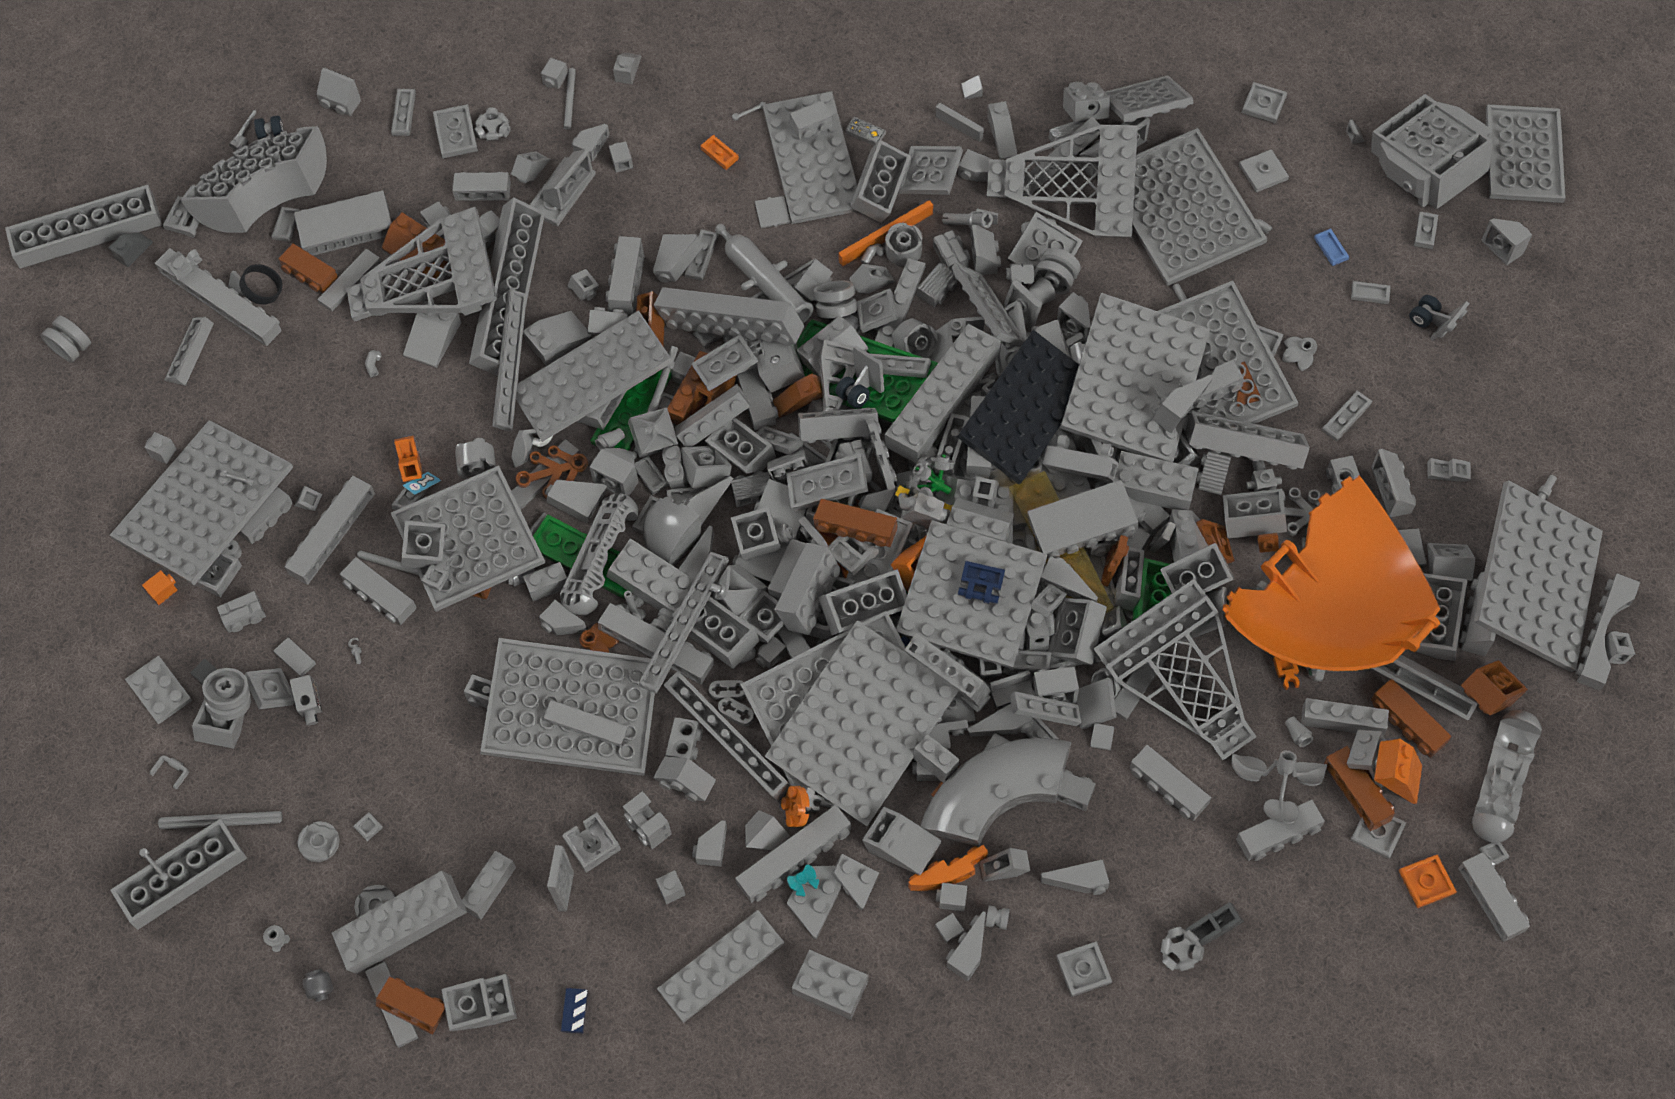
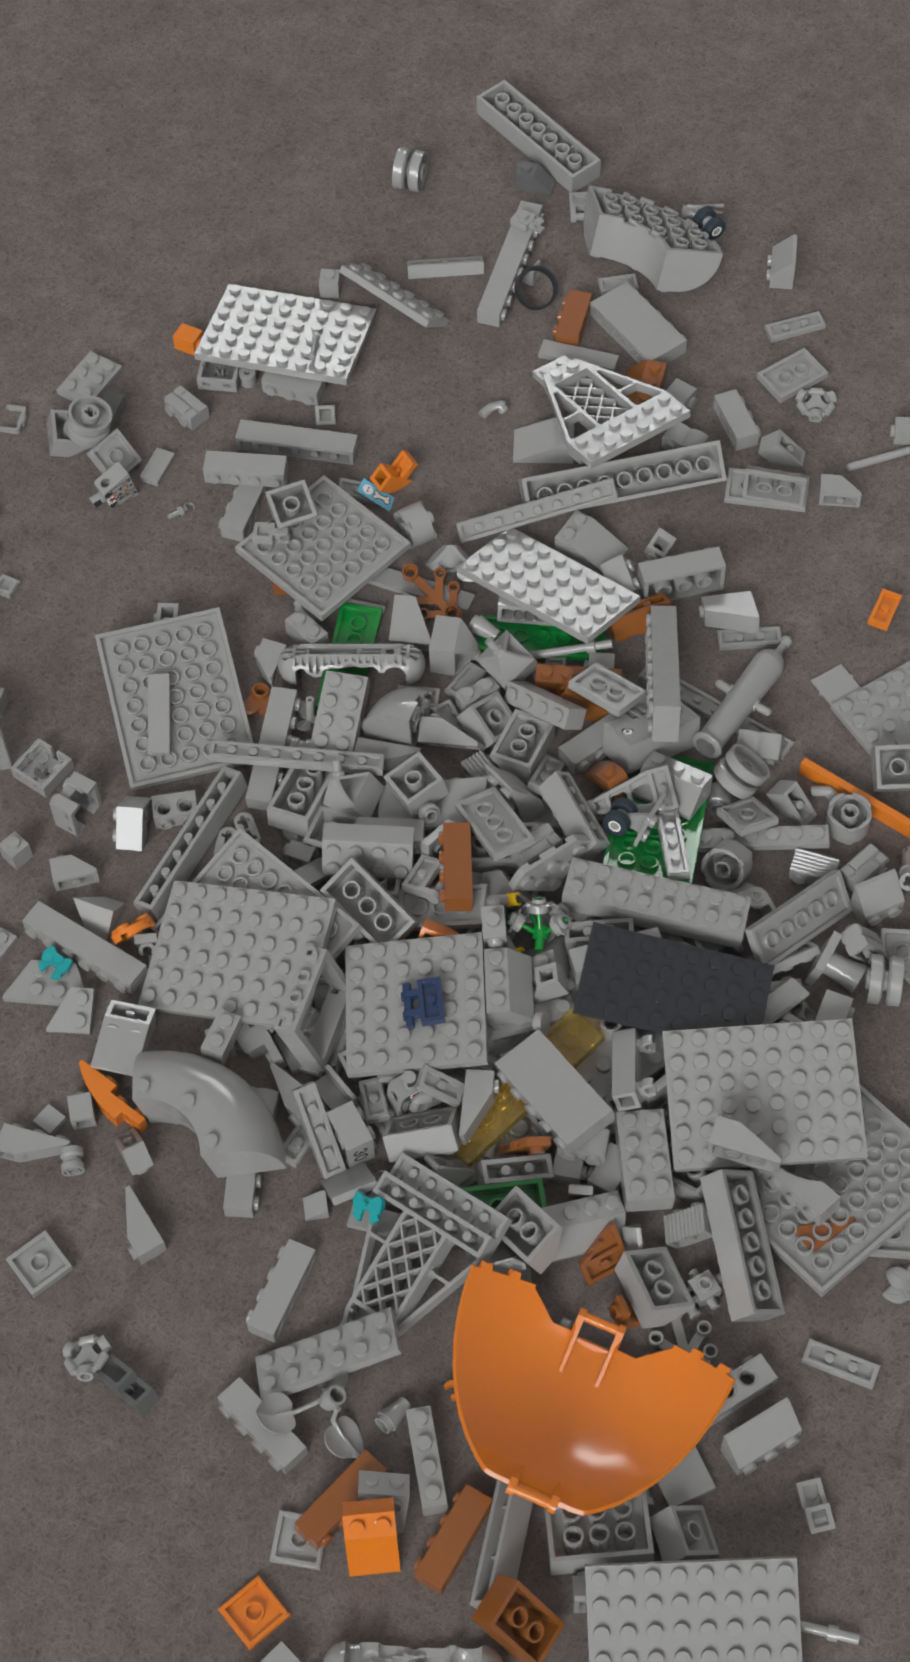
camera: 70 degrees right, 5 degrees down
(201, 401) = (393, 295): none -> light grey plate
(350, 575) = (245, 469): none -> light grey brick
(620, 156) = (832, 523): light grey brick -> none
(1017, 511) = (542, 1022): none -> light grey tile
(1127, 688) = (366, 1203): none -> teal piece
(1209, 513) = (632, 1237): none -> light grey slope
(1243, 760) = (329, 1354): none -> light grey plate

